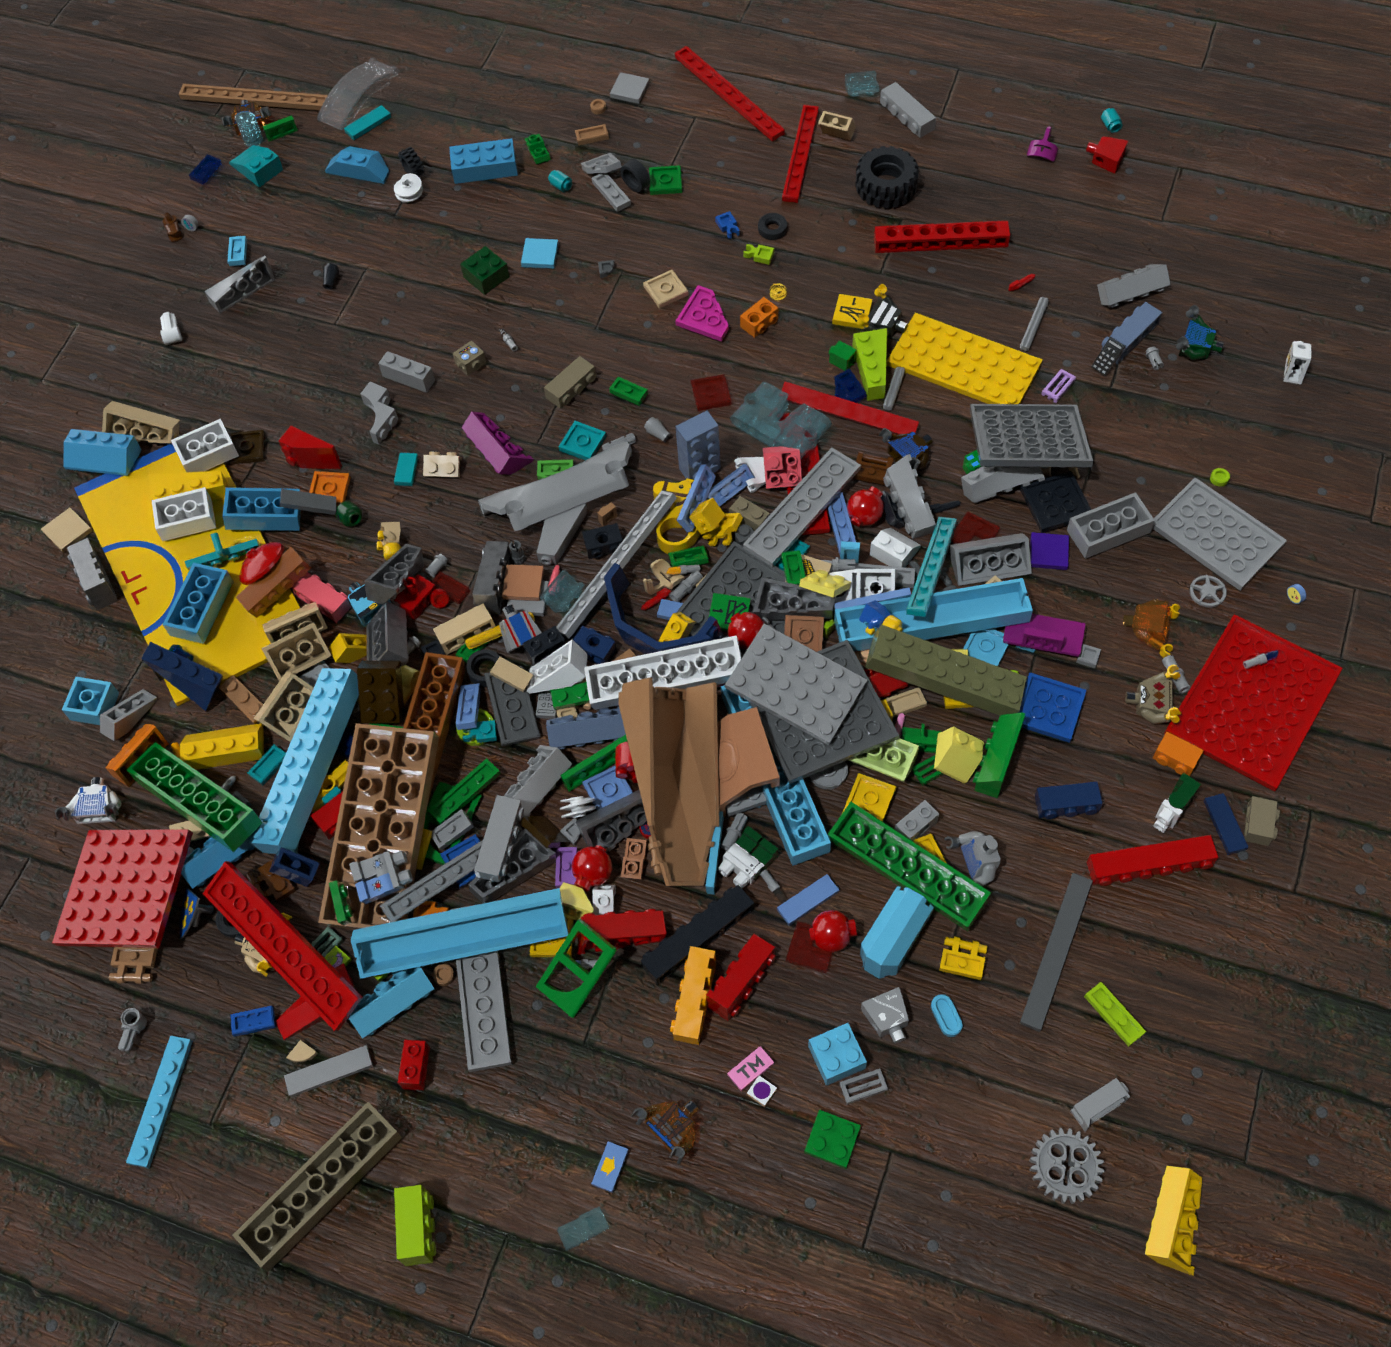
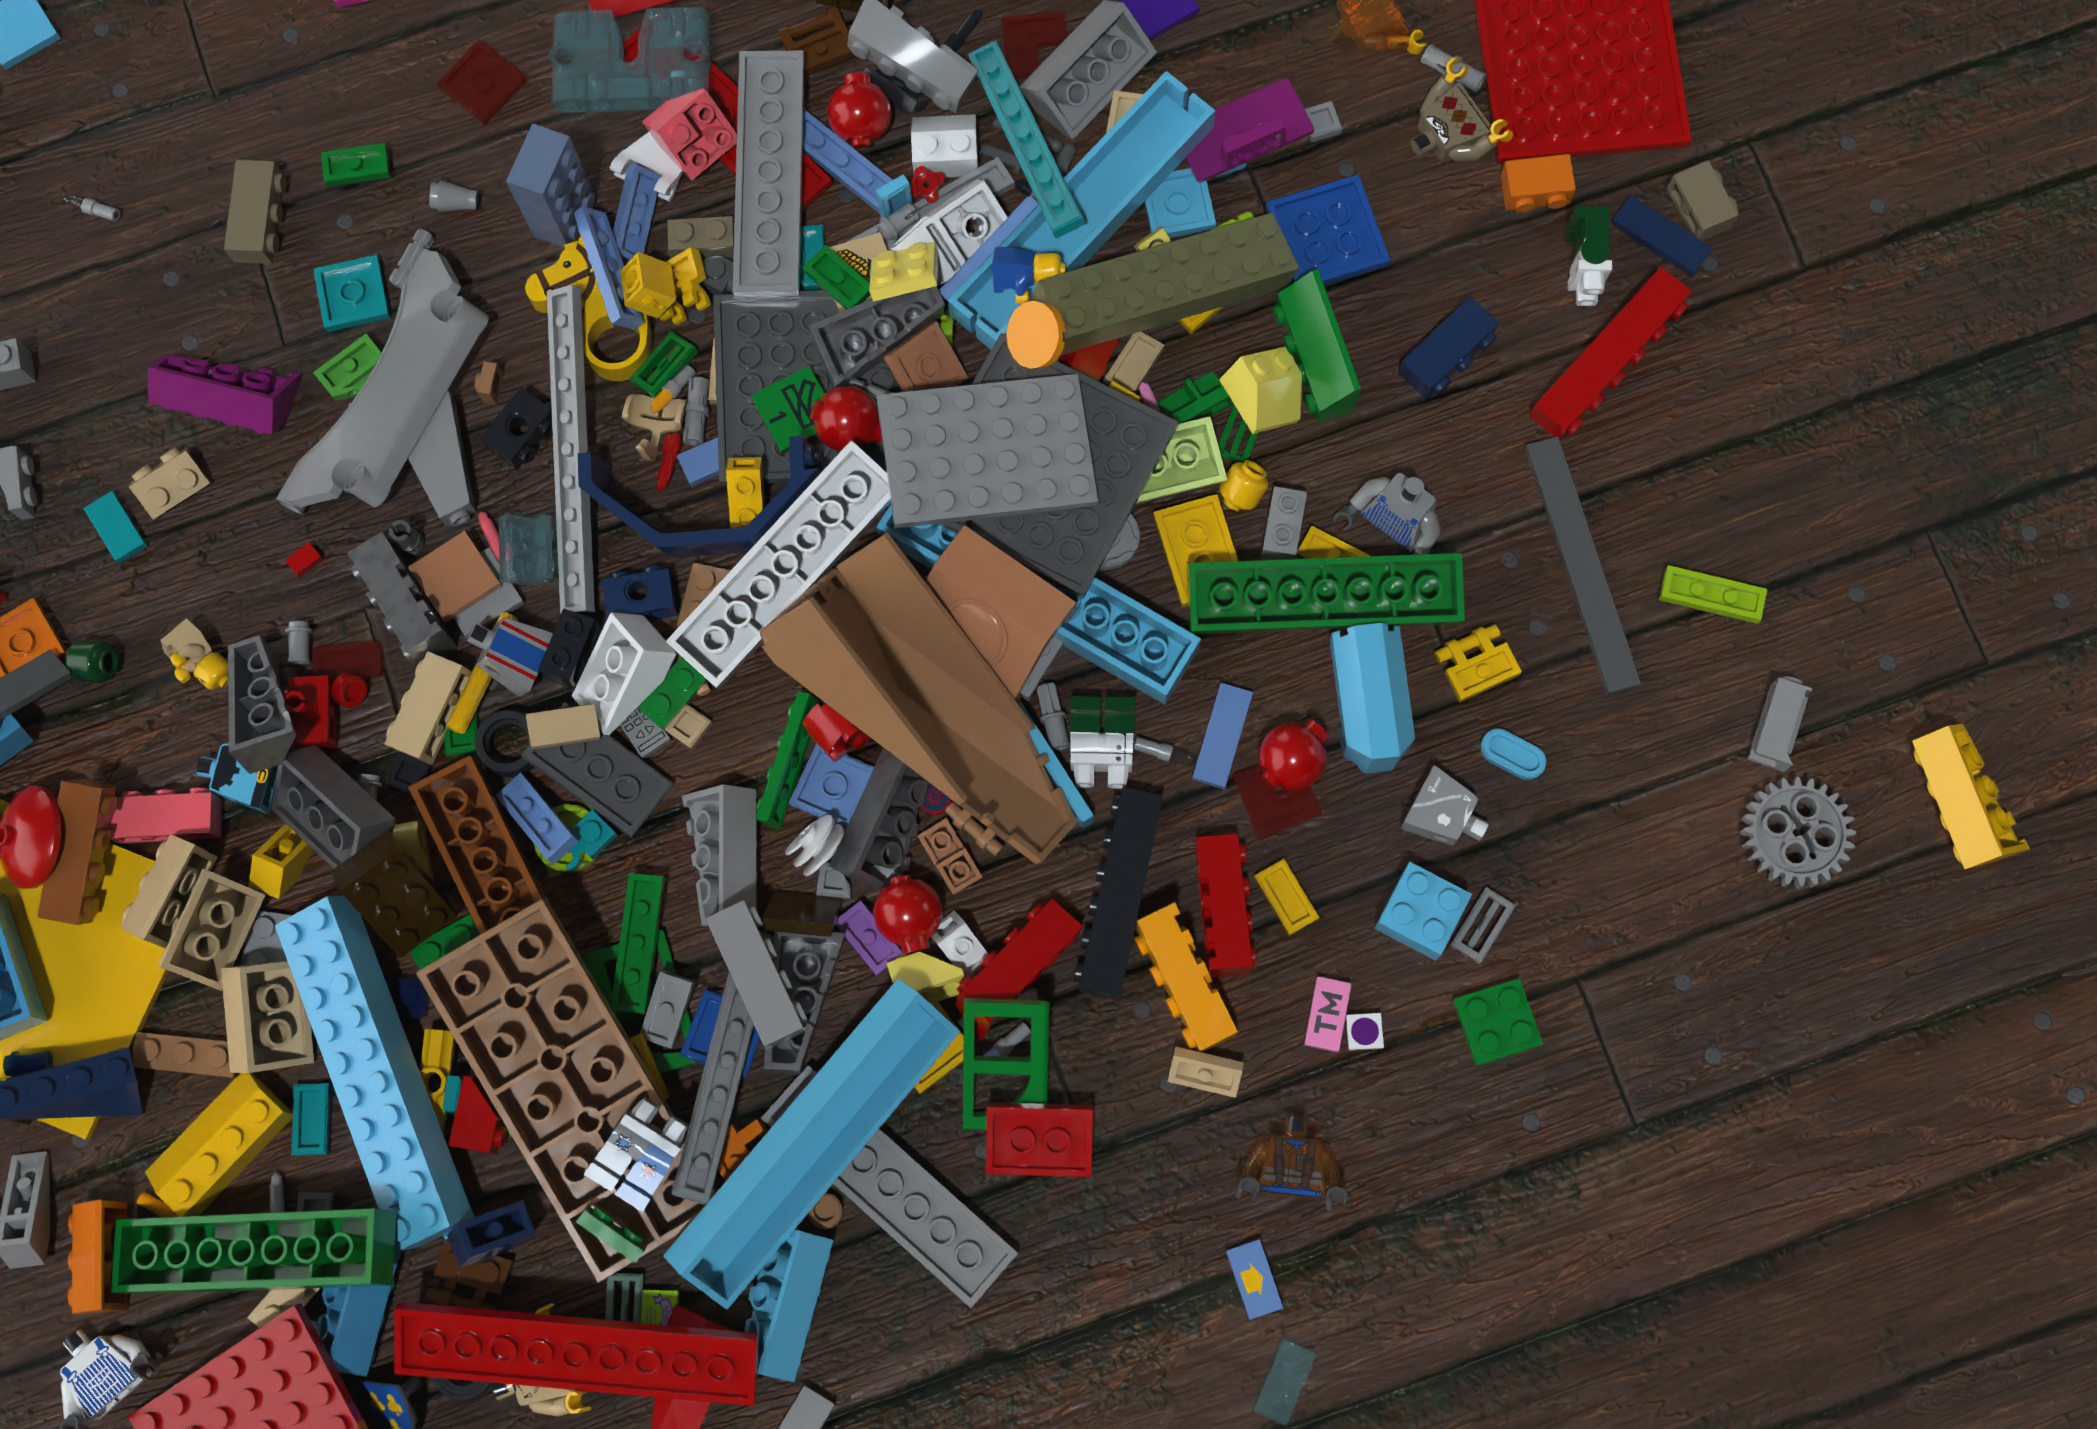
camera: 40 degrees left, 15 degrees up
(413, 1065) = (893, 1359): red brick -> none
(468, 534) = (304, 559): none -> red piece
(469, 358) = (59, 280): dark tan head -> none
(564, 1017) = (1039, 1139): none -> red plate
(585, 728) = (733, 721): sand blue wedge -> none
(668, 1048) = (1205, 1072): none -> tan plate
(776, 998) = (1286, 897): none -> yellow tile
(860, 647) = (1035, 334): none -> light orange tile
(870, 553) = (923, 175): none -> red plate
(912, 791) = (1244, 485): none -> yellow head

